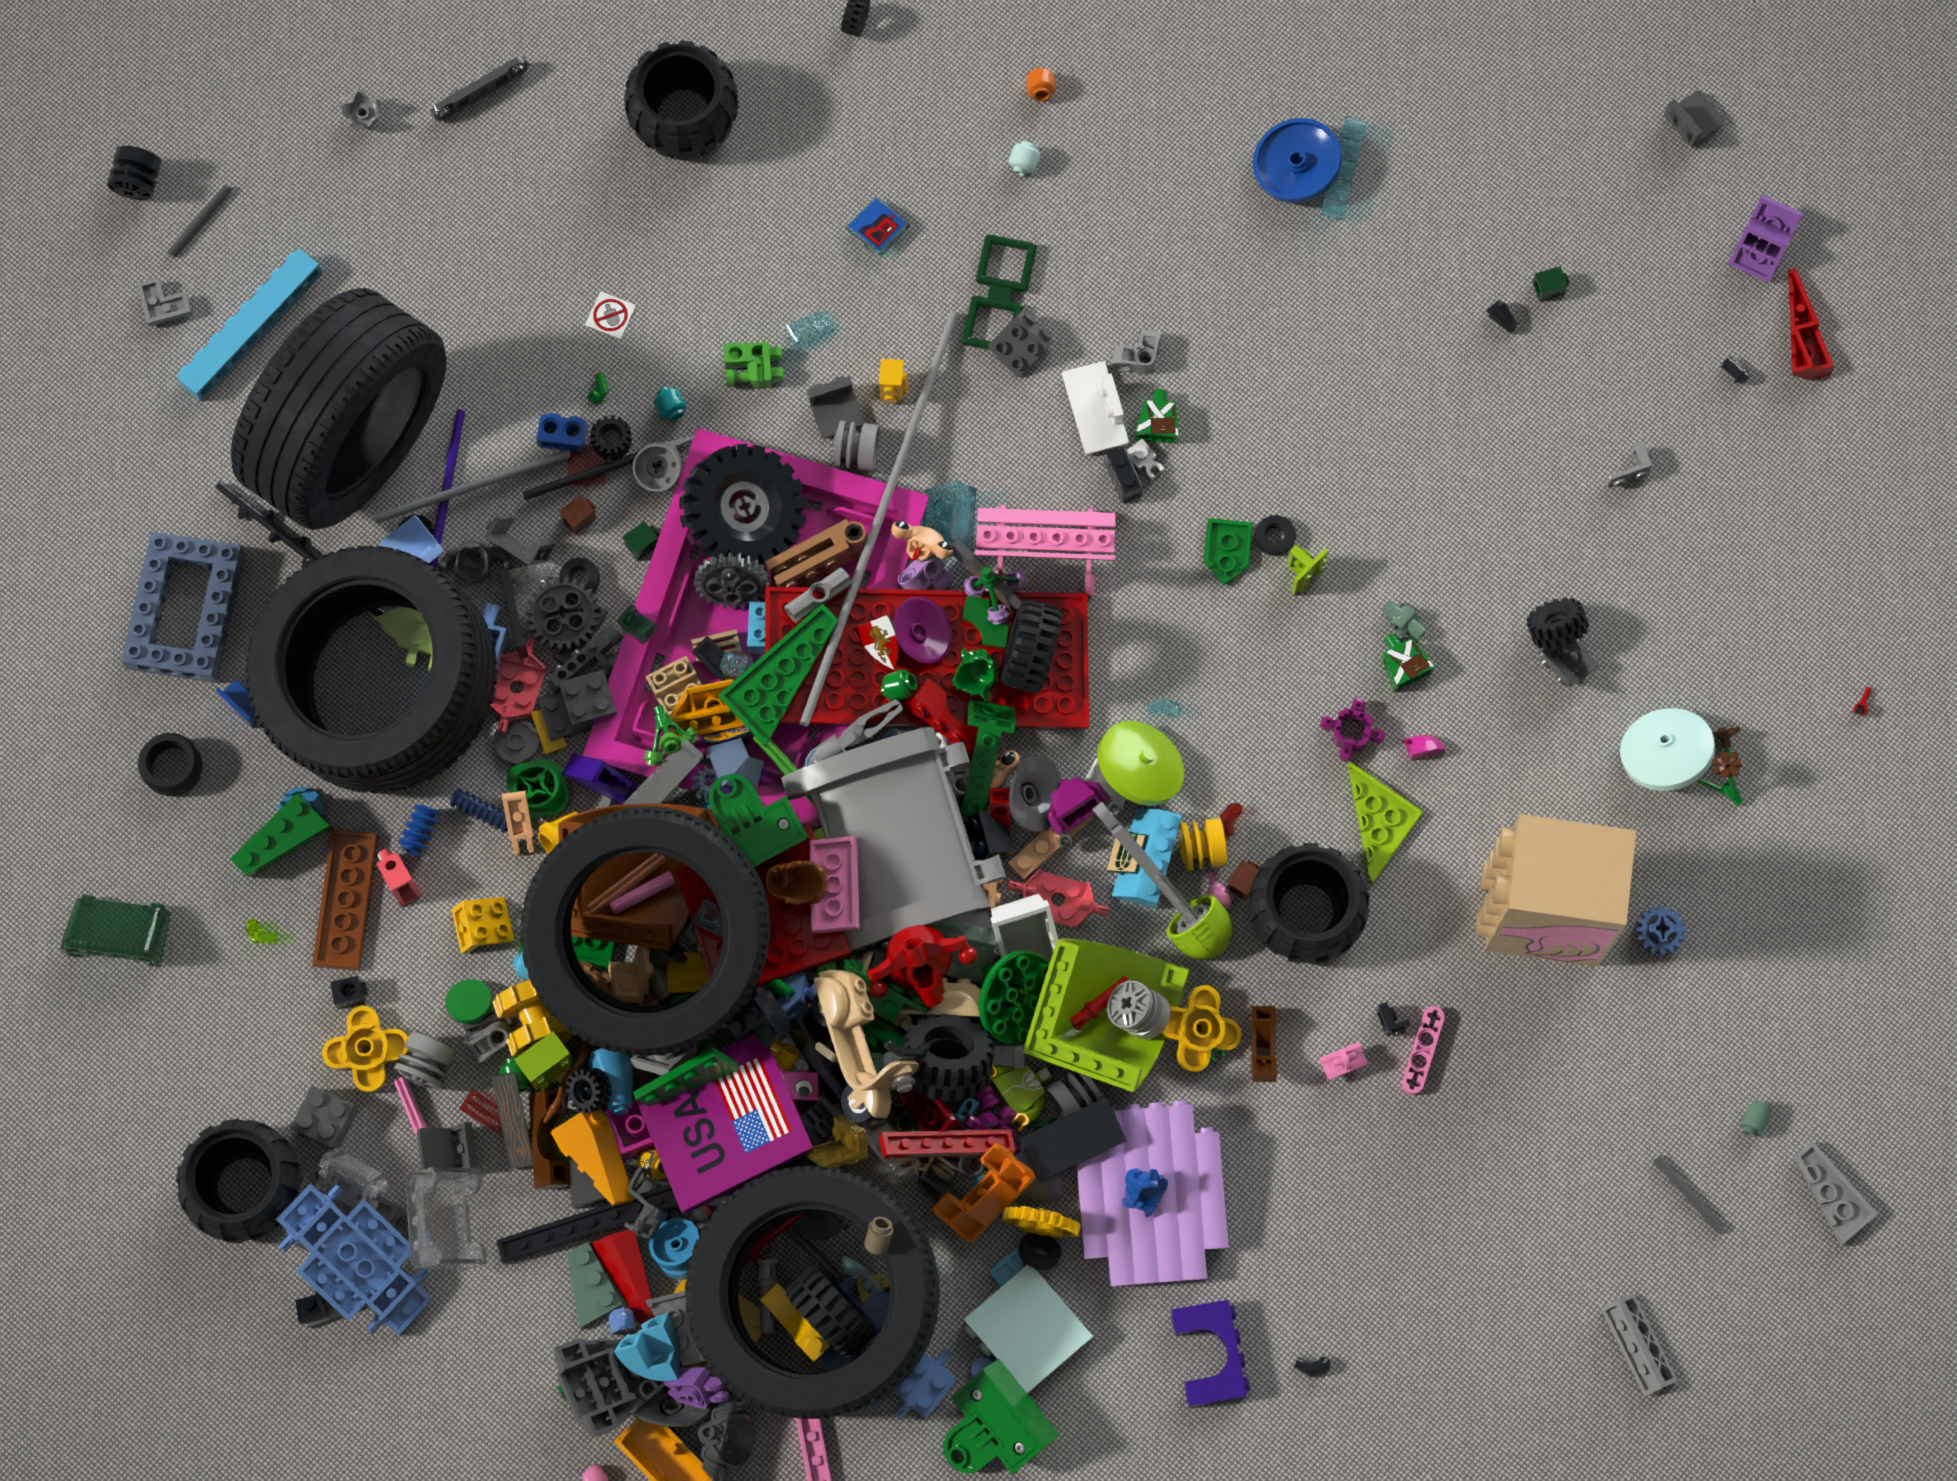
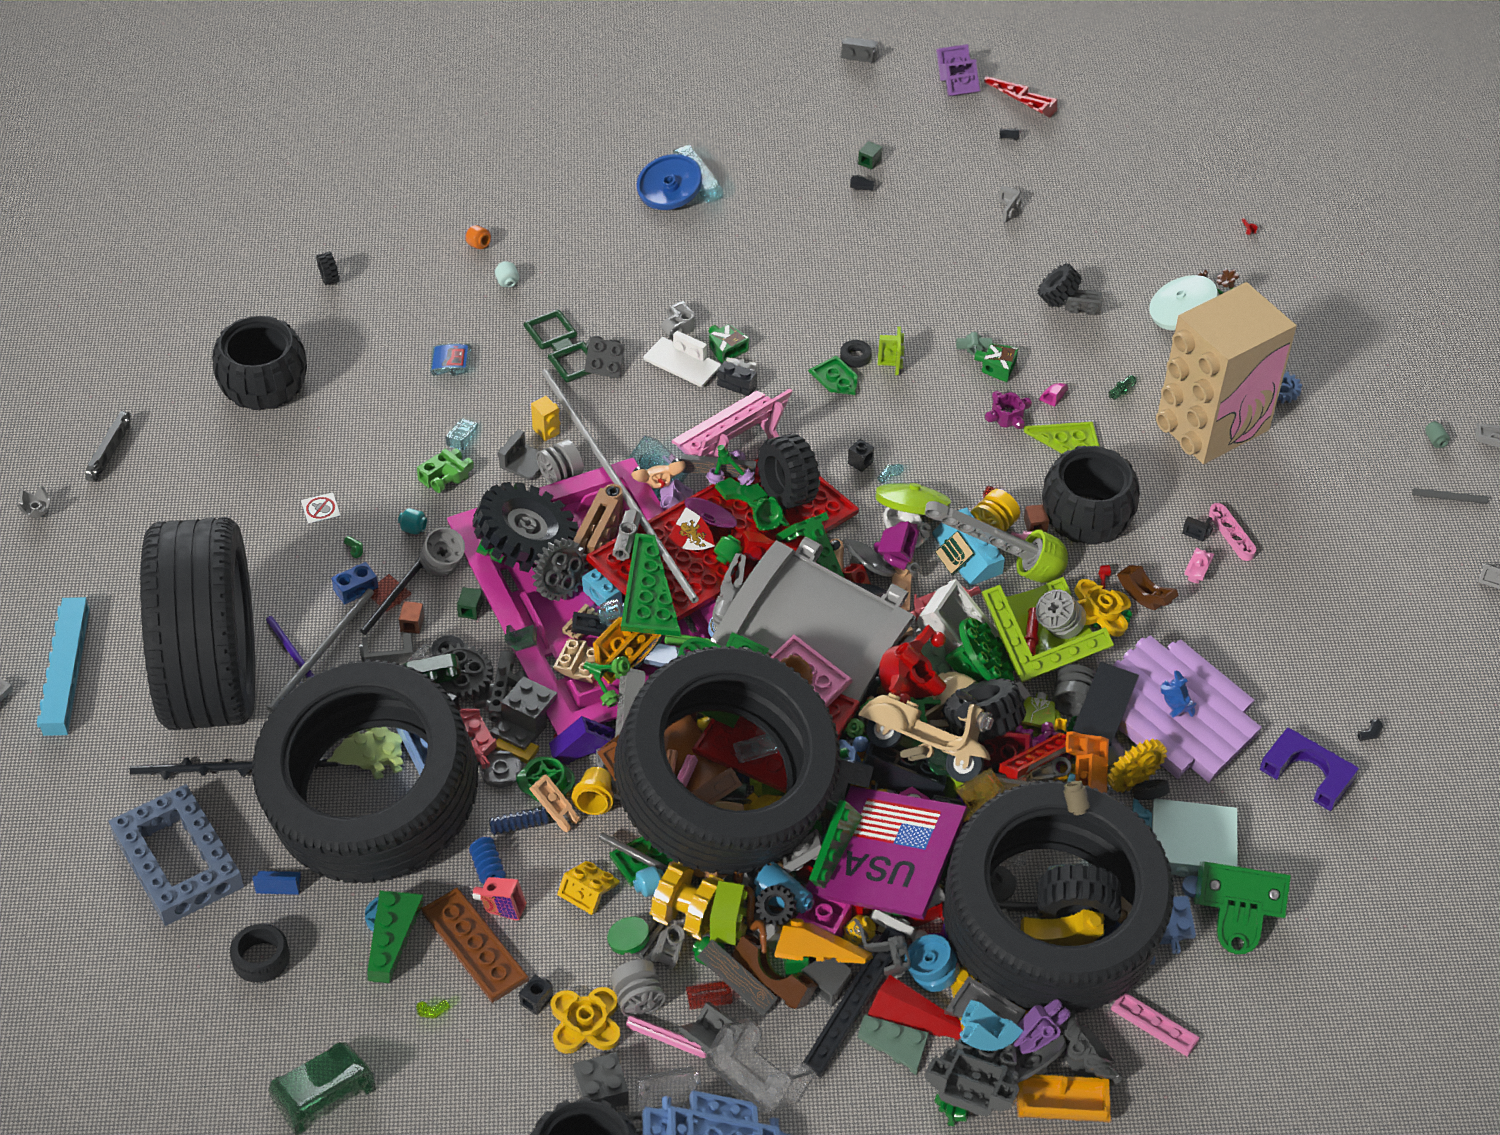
camera: 45 degrees left, 25 degrees down
(527, 598) = (439, 668): none -> beam
(611, 424) = (390, 556): black tyre -> none
(622, 1321) = (940, 1040): medium blue rock -> none
(1151, 666) = (861, 455): none -> black brick
(1250, 989) = (1104, 571): none -> red hand
(1497, 796) = (1122, 387): none -> clear green axle

